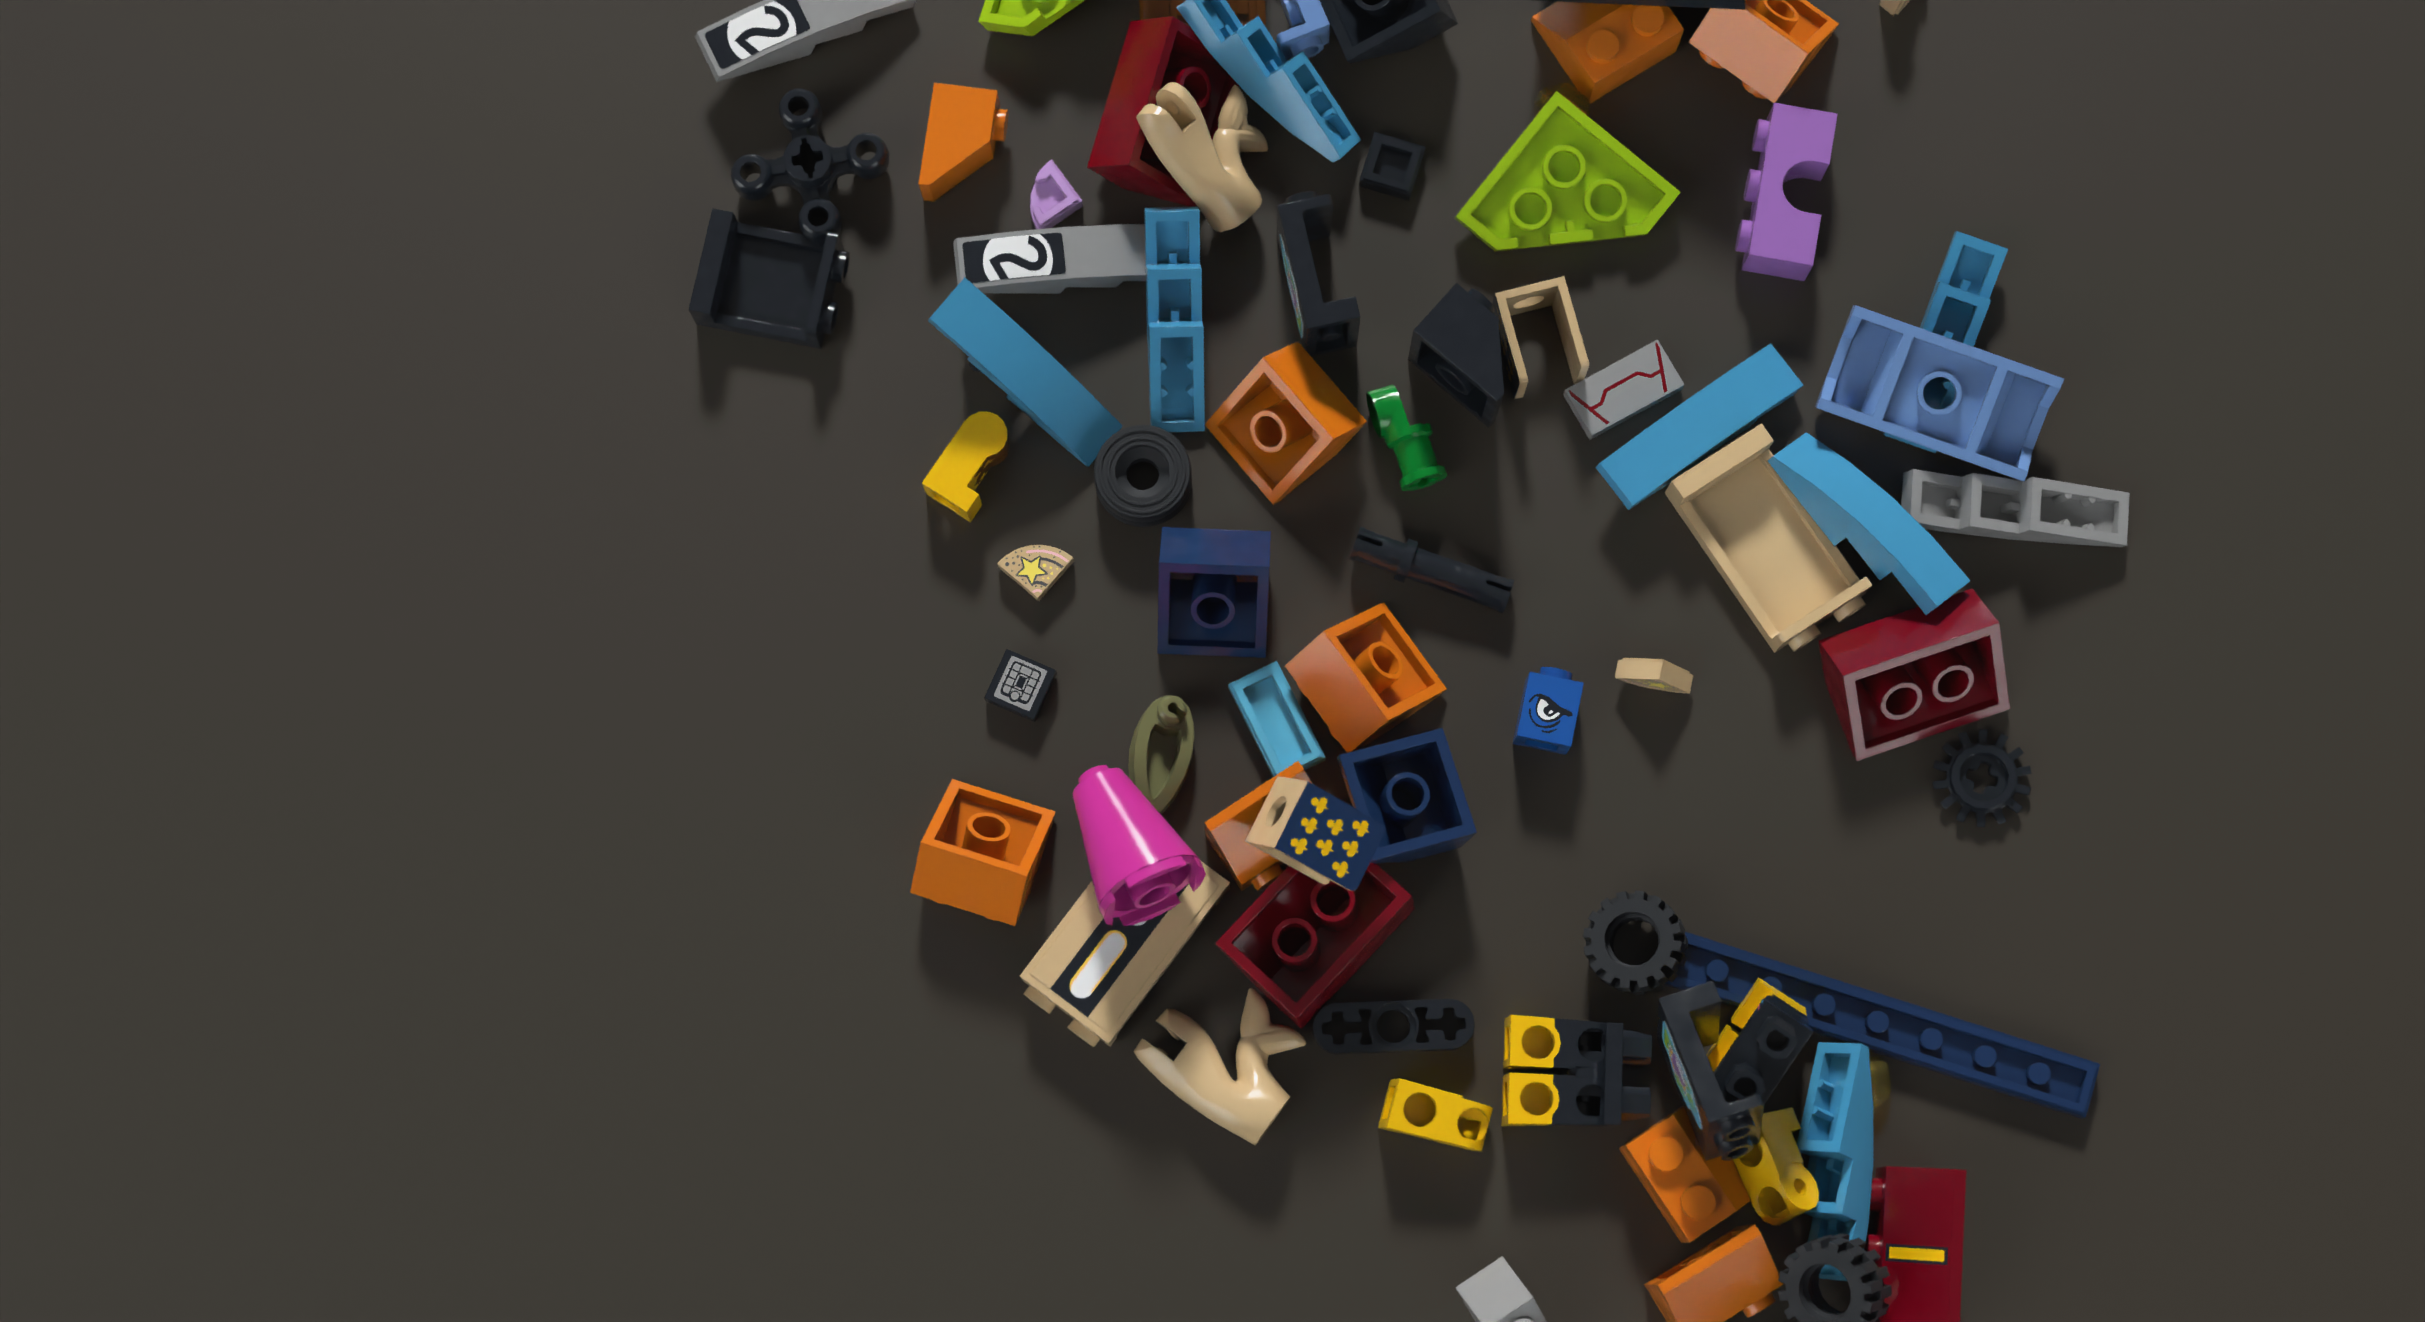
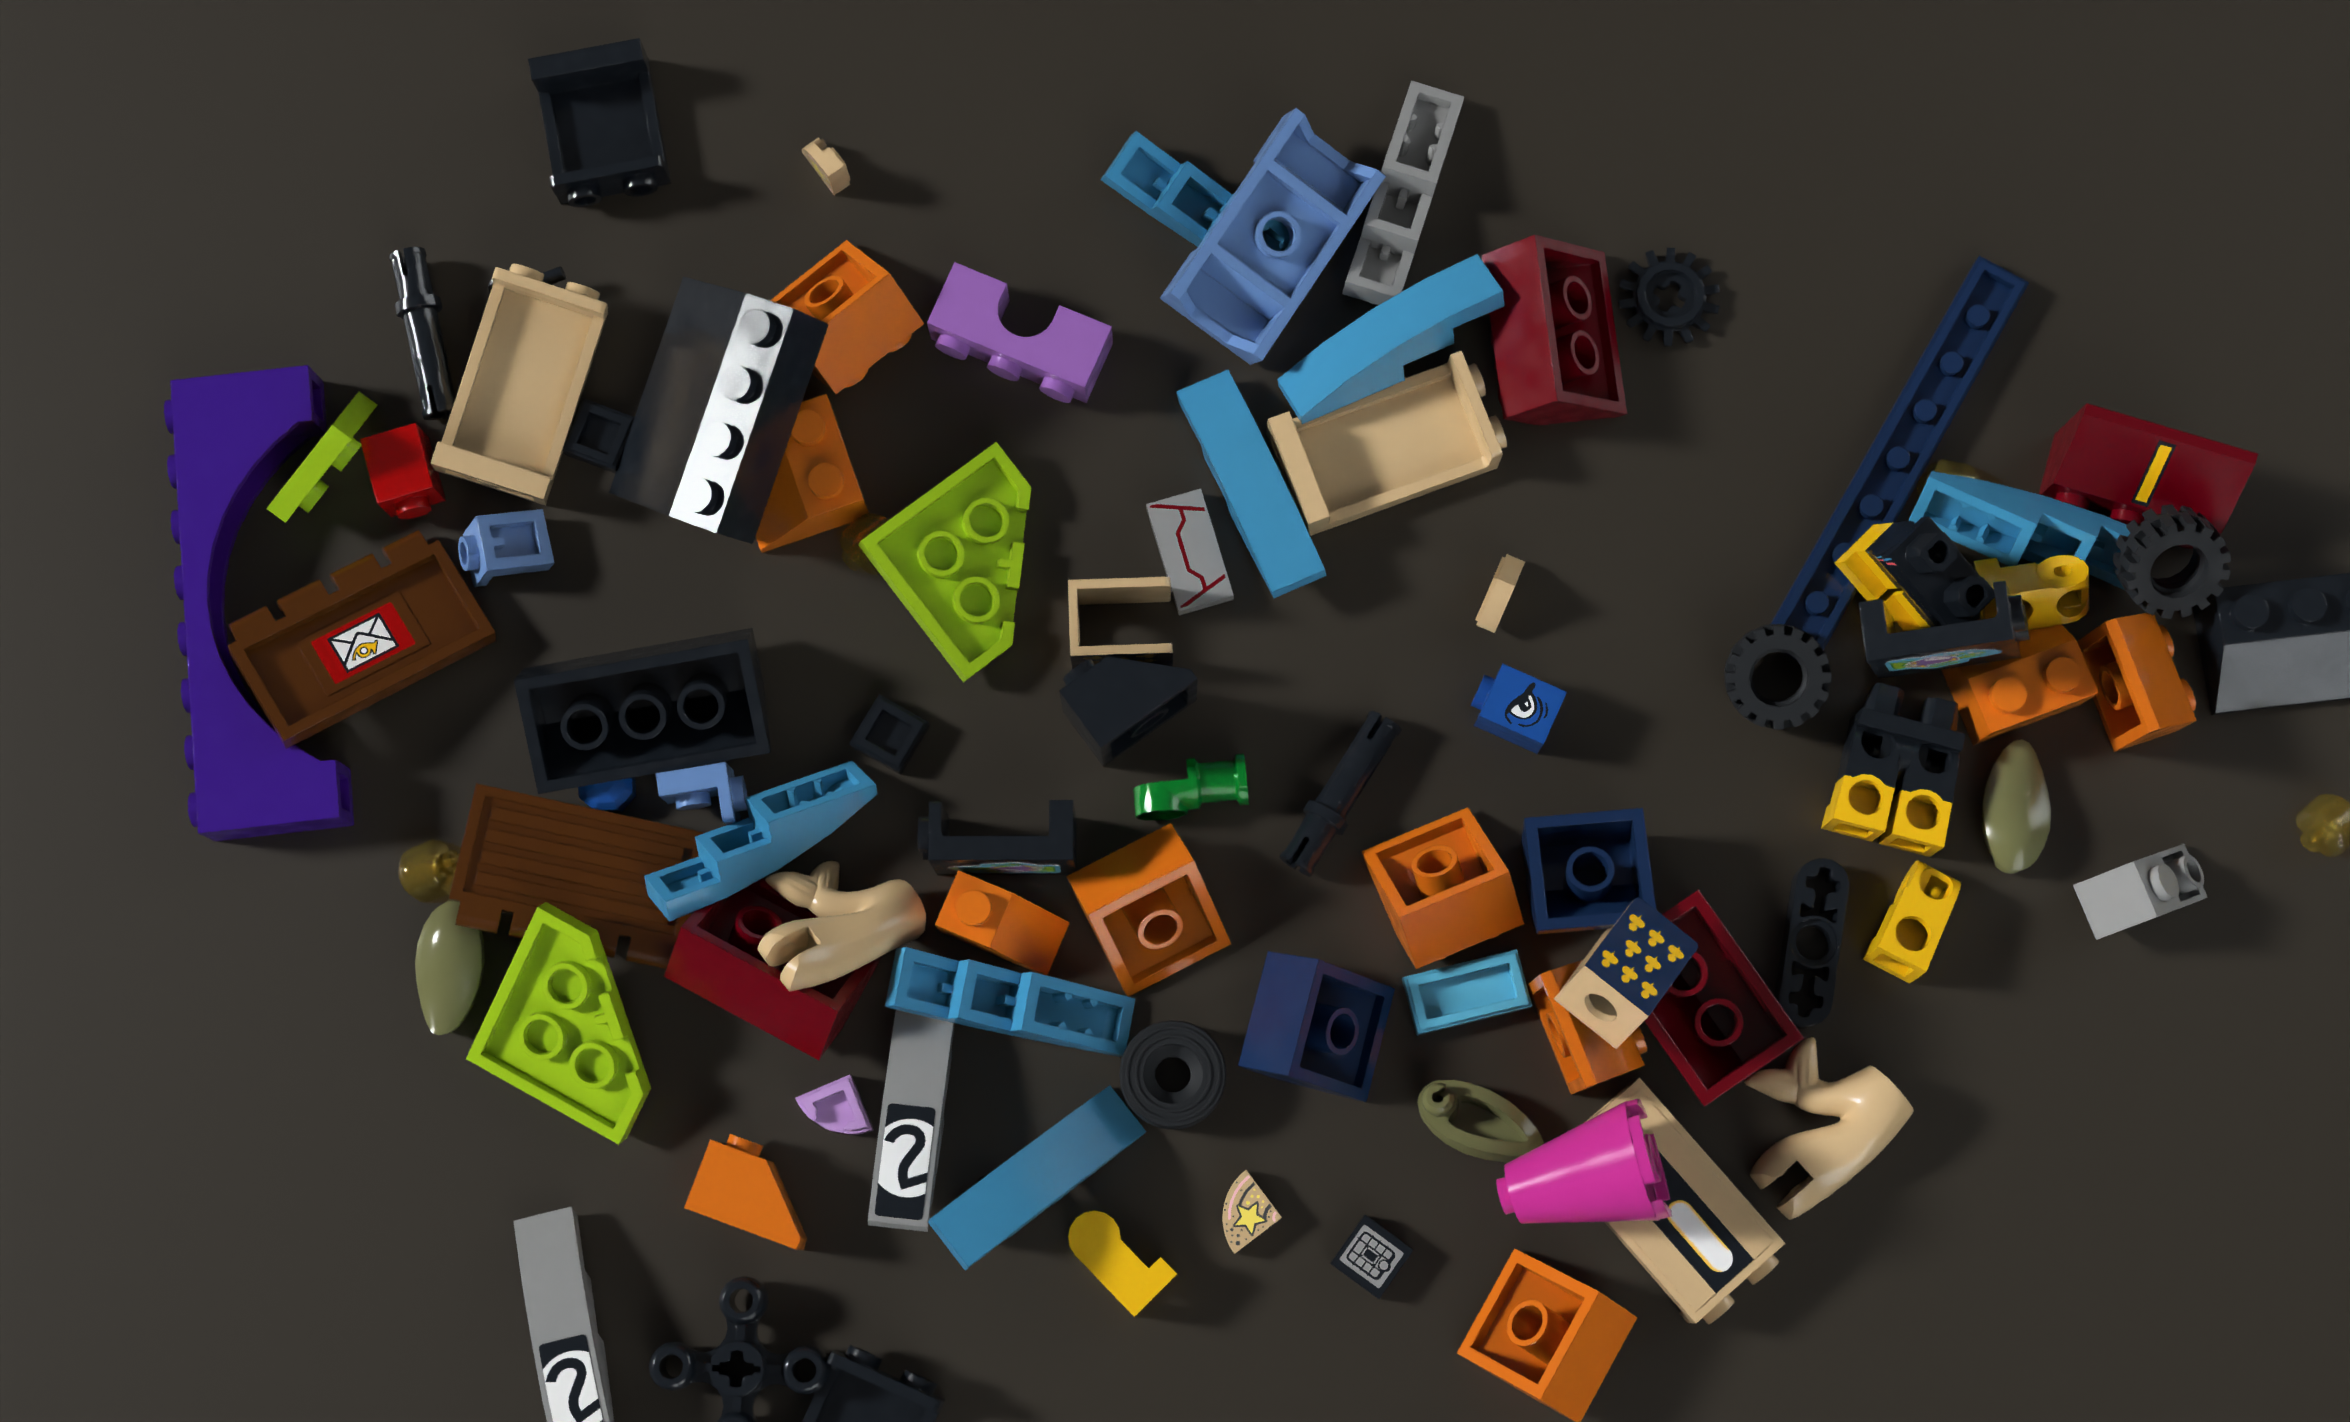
camera: 80 degrees left, 0 degrees up
(1243, 296) = (1001, 923): none -> orange slope
(1565, 1194) = (2016, 809): none -> olive arm

